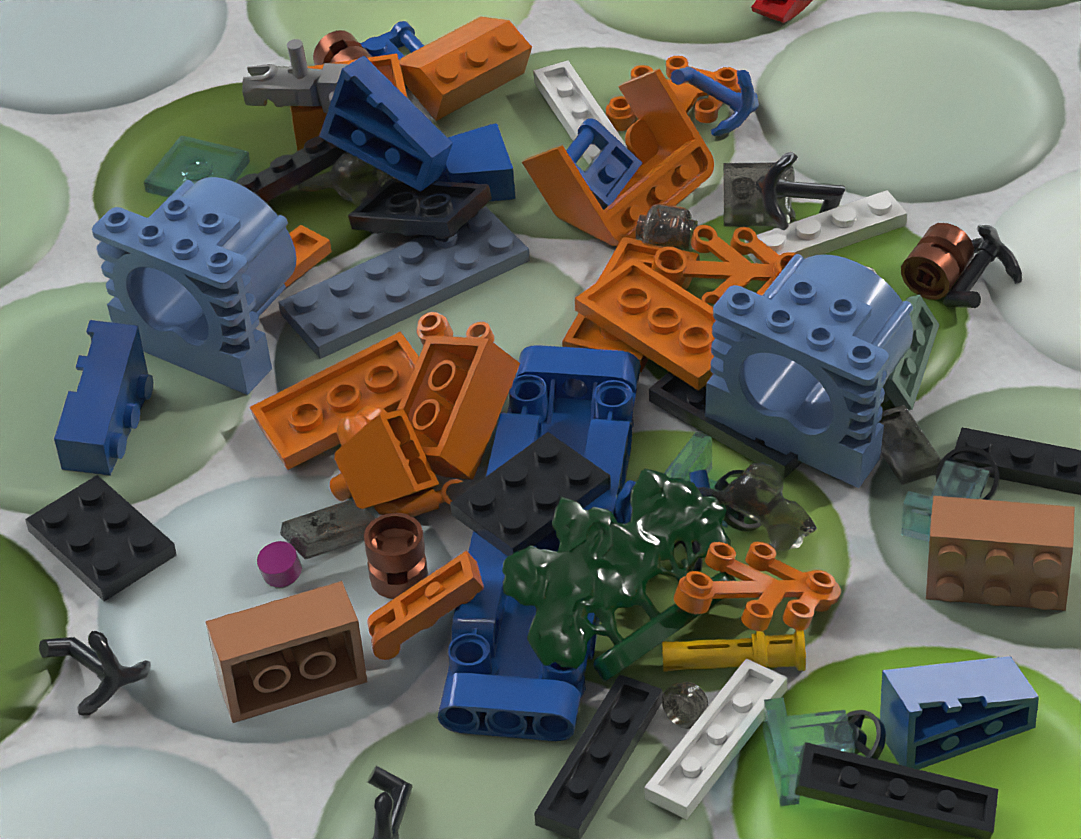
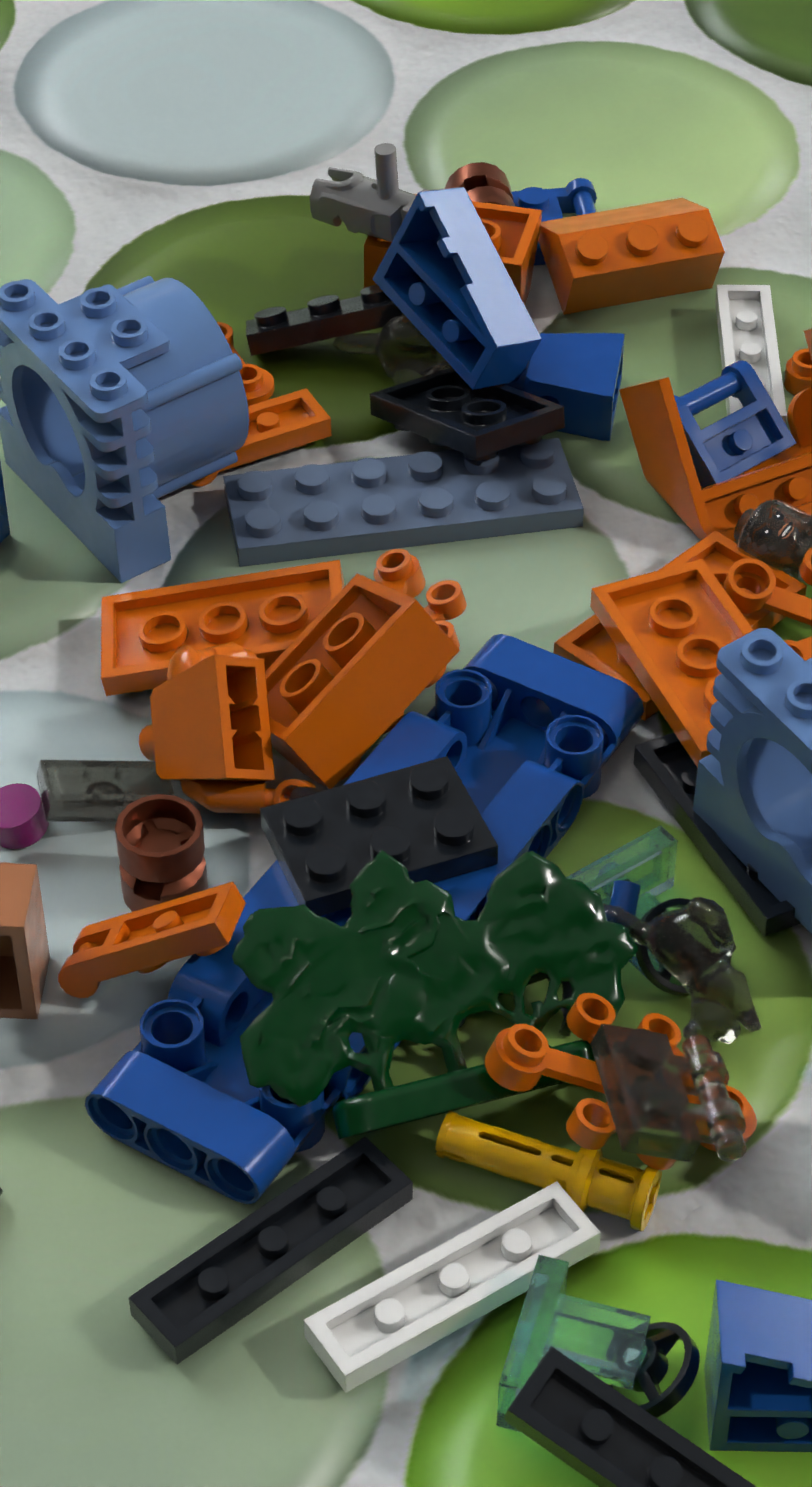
camera: 20 degrees right, 0 degrees up
(194, 161) = (236, 283): clear light blue tile -> none
(684, 703) = (434, 1214): clear smoke plate -> none
(791, 586) = (650, 1091): none -> clear smoke plate

